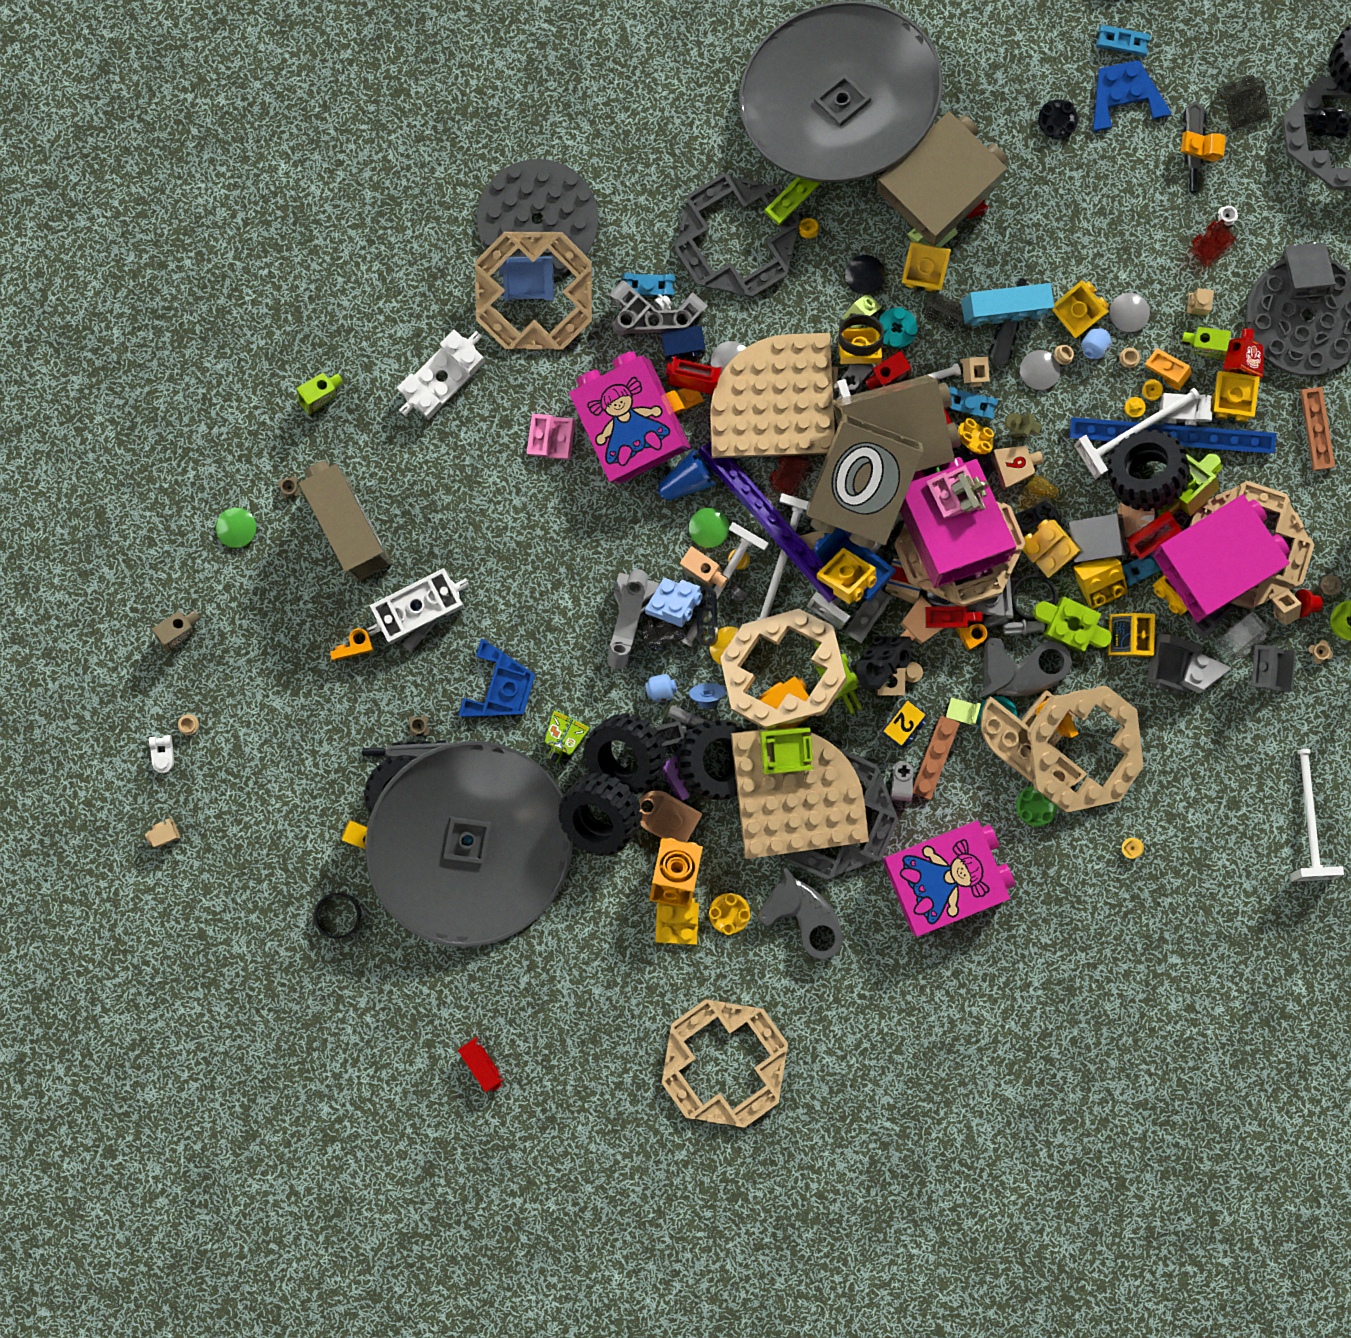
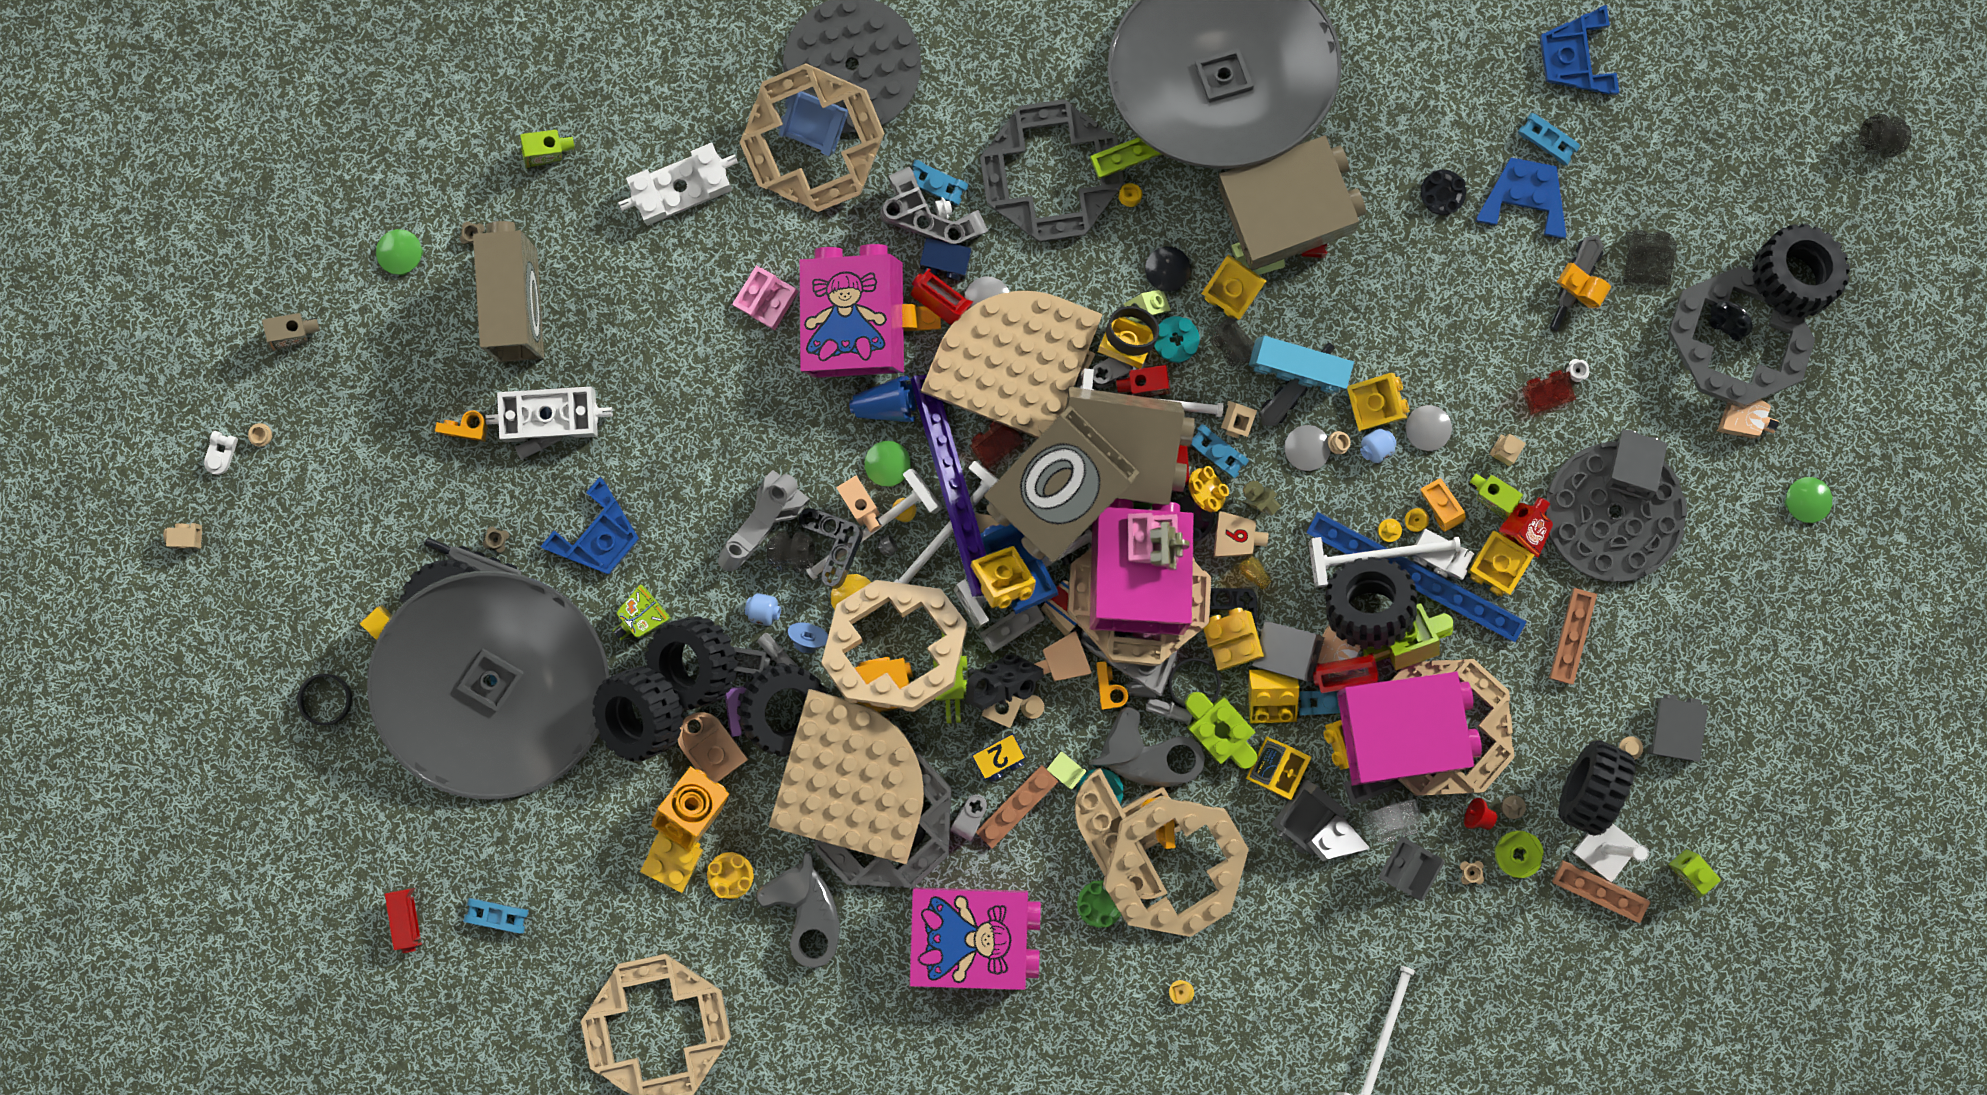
camera: 25 degrees right, 0 degrees up
(554, 1029) = (495, 915): none -> dark azure plate
(674, 601) = (813, 525): light blue plate -> none
(789, 750) = (861, 733): lime container -> none
(950, 617) = (1094, 666): red plate -> none
(1129, 357) = (1407, 475): tan plate -> none
(1283, 611) = (1451, 810): tan brick -> none

